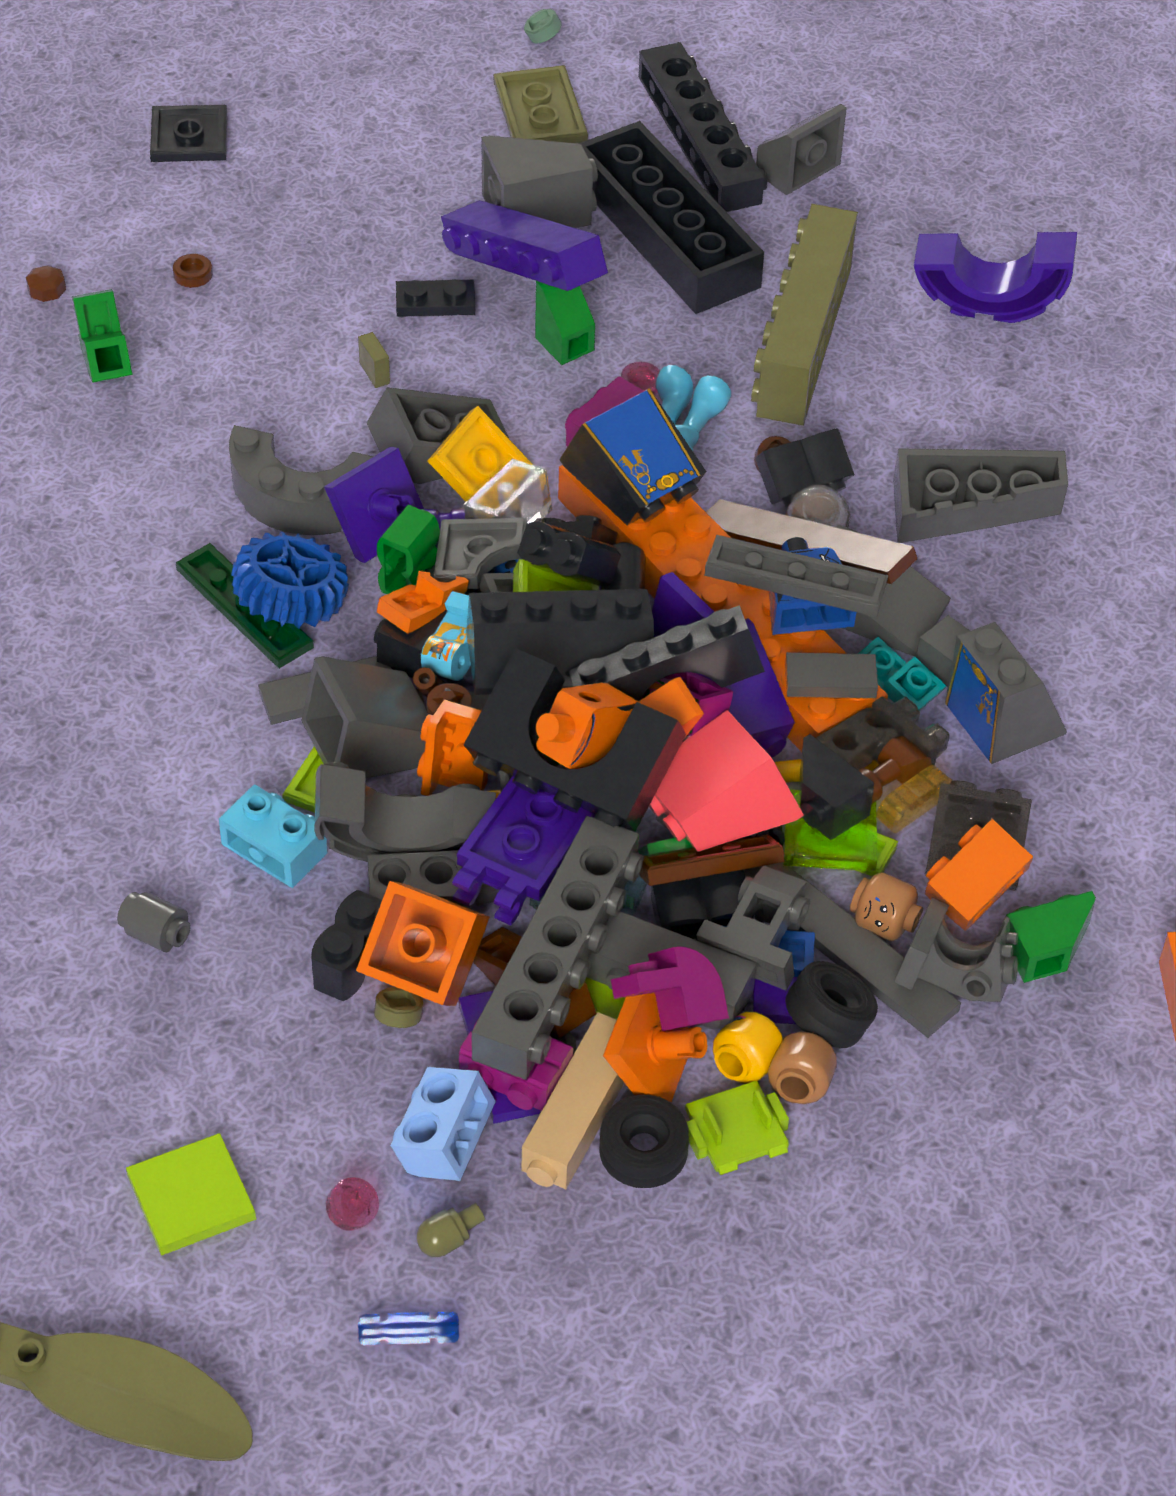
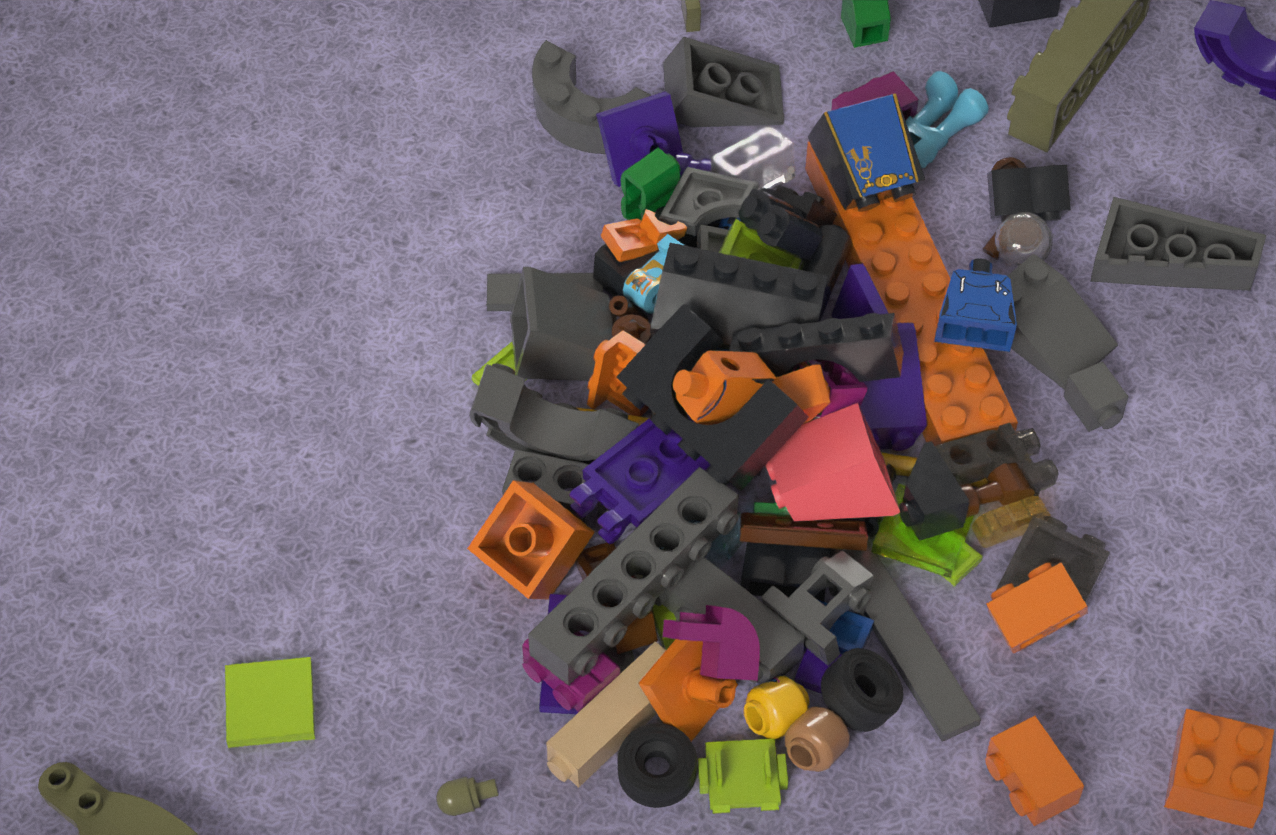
camera: 20 degrees right, 5 degrees up
(154, 921) = (325, 458): dark grey brick -> none
(211, 576) = (503, 201): dark green tile -> none
(272, 835) = (443, 406): medium azure brick -> none
(290, 579) = (544, 188): blue gear -> none
(341, 946) = (462, 522): black brick -> none
(352, 1204) = (394, 749): clear pink tile -> none
(398, 1008) = (494, 590): olive tile -> none
(443, 1123) = (492, 701): light blue brick -> none
(474, 454) = (742, 112): yellow tile -> none
(641, 375) = (915, 75): clear pink tile -> none
(774, 529) = (1029, 282): tile -> none
(796, 575) = (966, 295): dark grey tile -> none
(831, 675) = (969, 392): dark grey tile -> none
(886, 906) = (946, 613): medium nougat head -> none
(903, 678) = (1038, 405): teal slope -> none
(957, 965) = (985, 683): dark grey tile -> none
(999, 695) = (1121, 448): dark grey slope -> none
(1035, 1038) = (1033, 771): none -> orange brick
(1050, 934) = (1083, 679): green slope -> none

